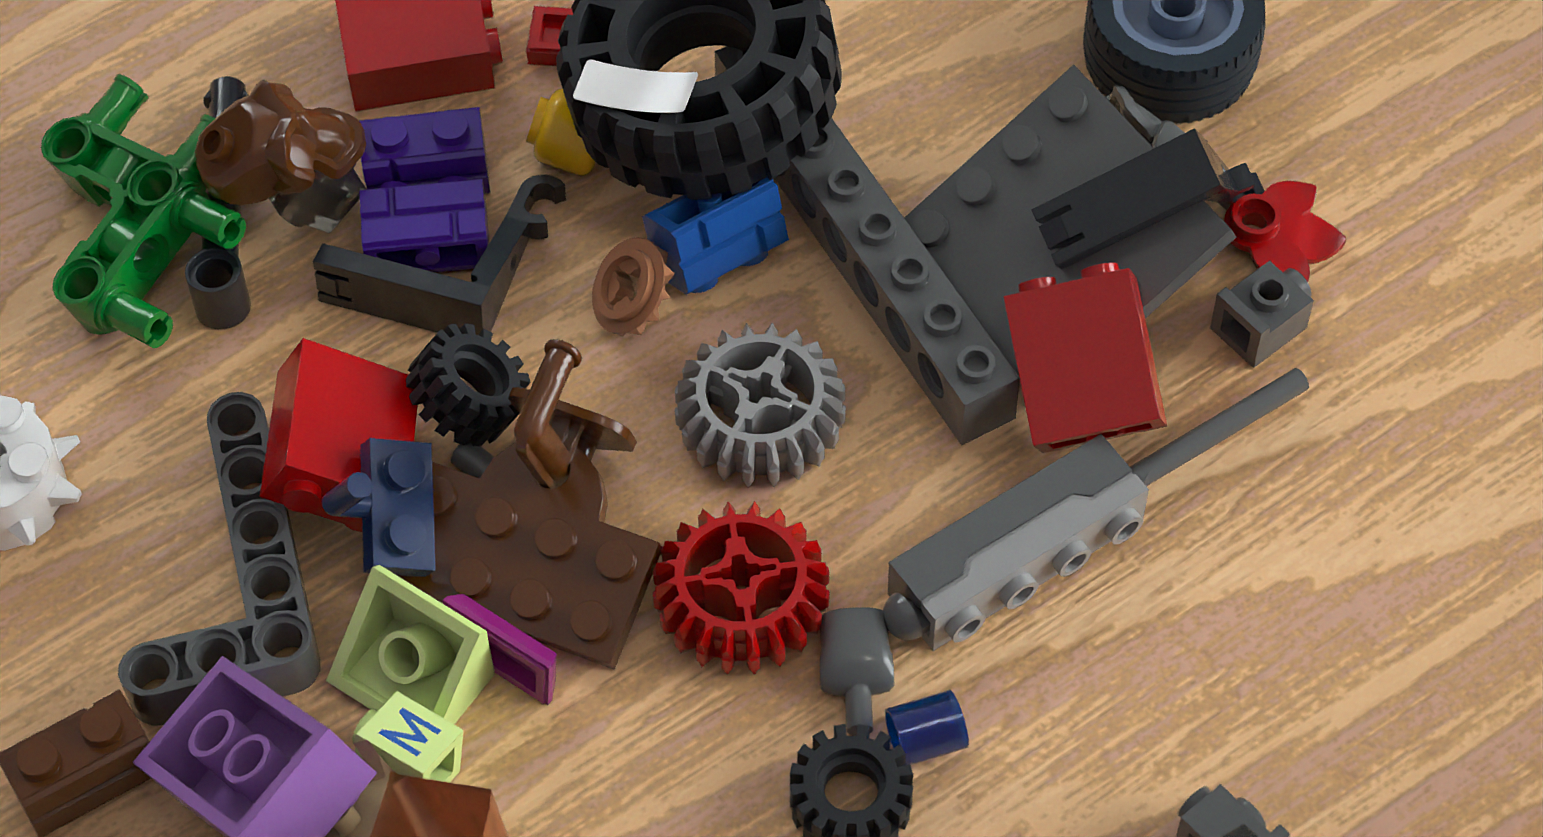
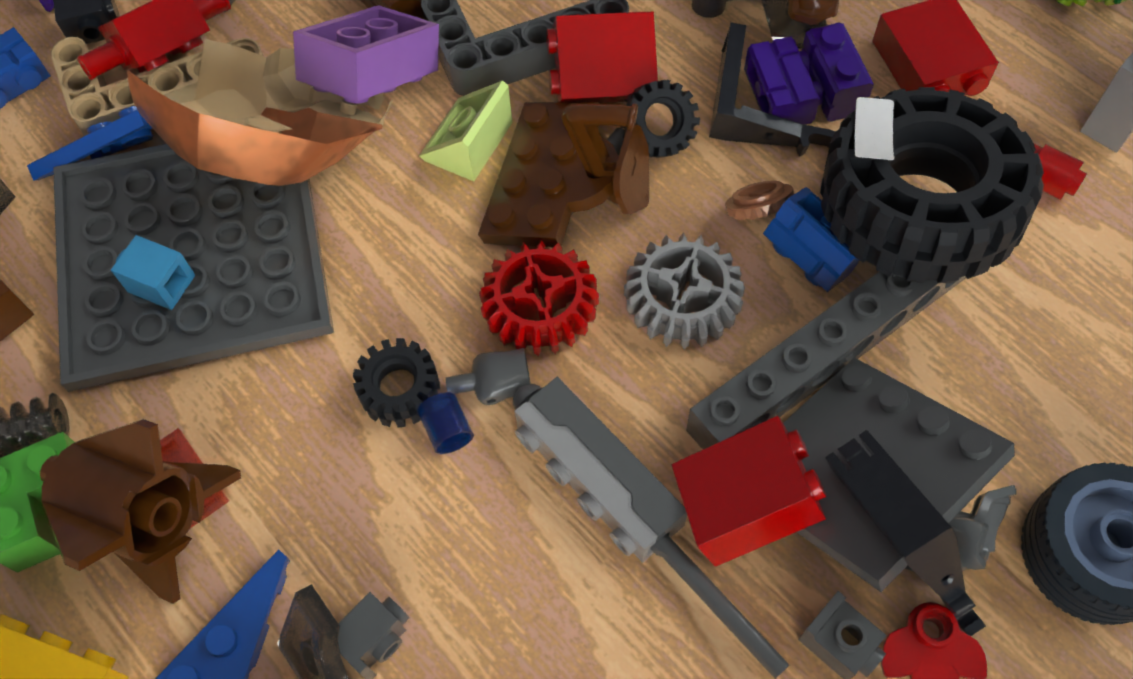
camera: 85 degrees right, 5 degrees up
(395, 505) = (552, 86): dark blue plate -> none
(412, 739) = (402, 136): yellowish green brick -> none
(513, 652) = (480, 173): magenta tile -> none

